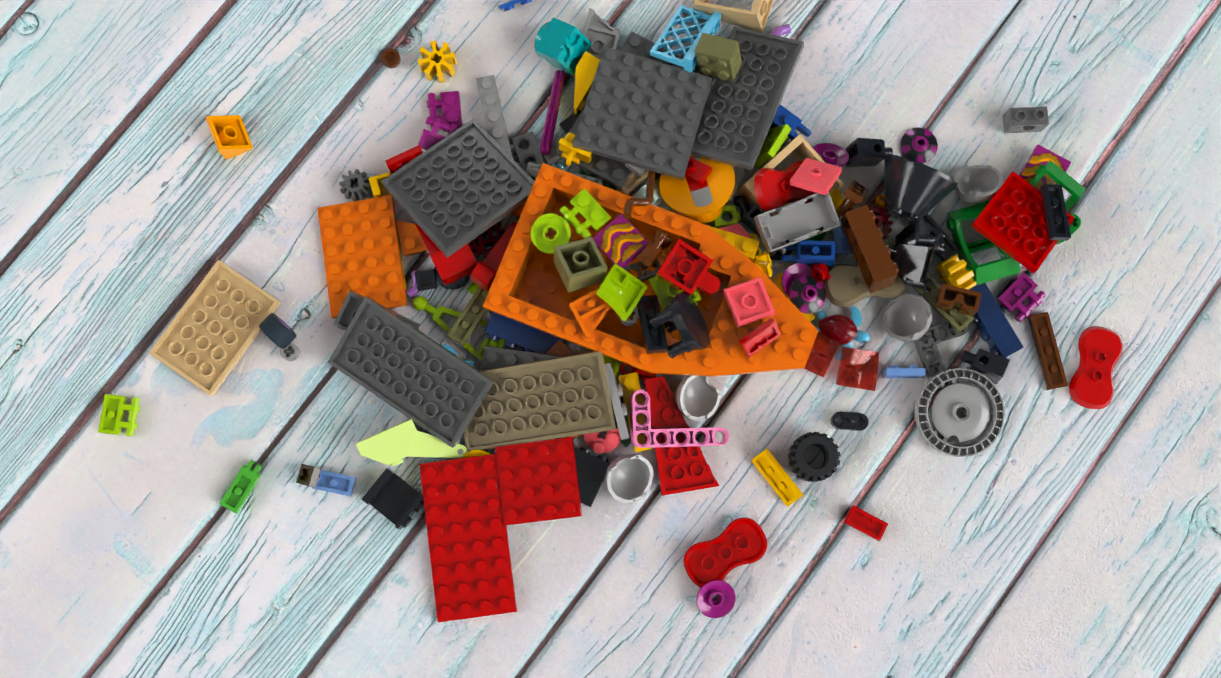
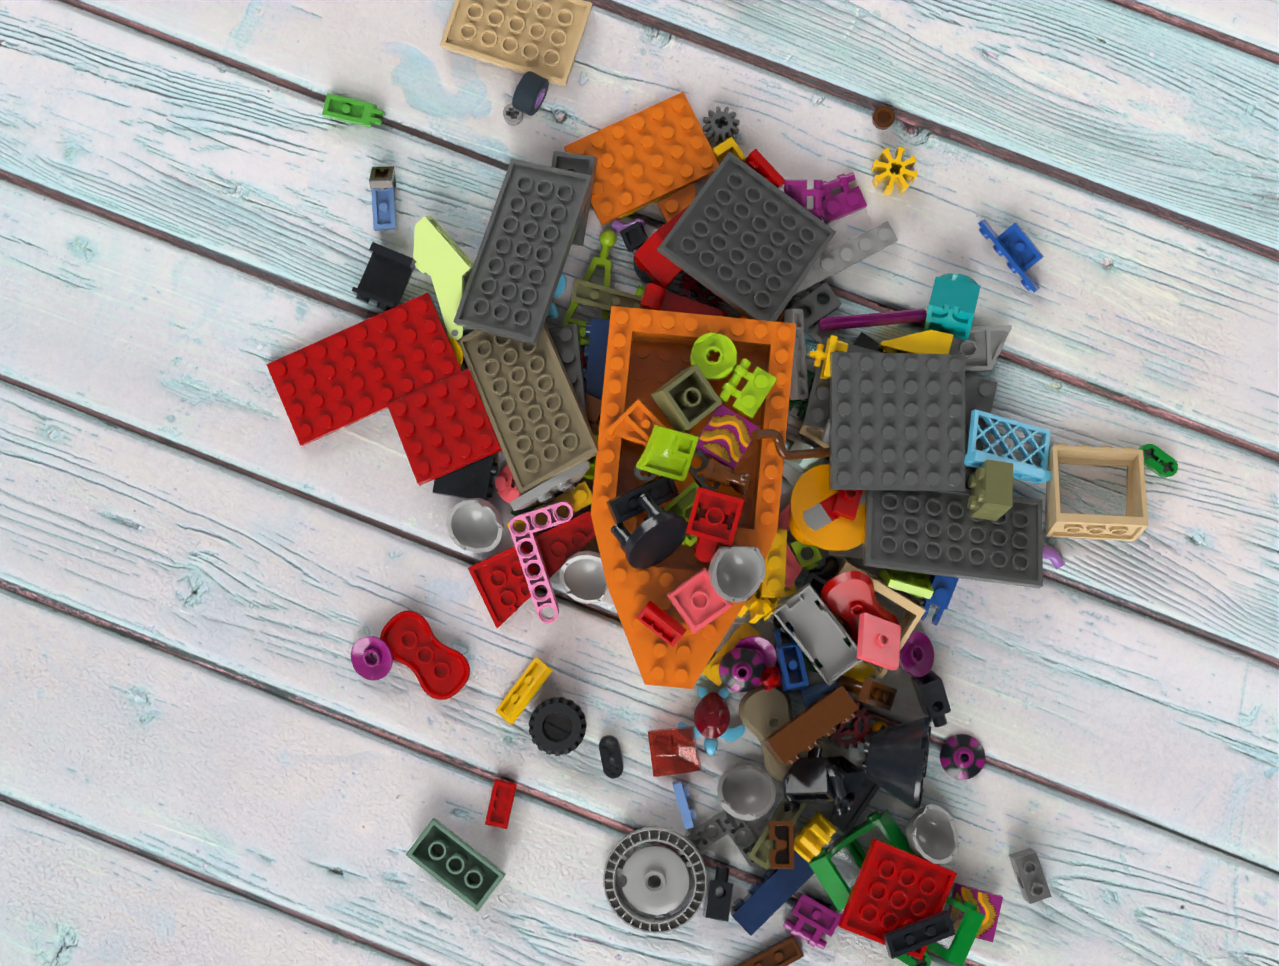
camera: 80 degrees right, 5 degrees up
(734, 263) = (736, 572): none -> light grey cylinder
(821, 354) = (679, 702): clear red plate -> none
(907, 574) = (455, 864): none -> sand green brick

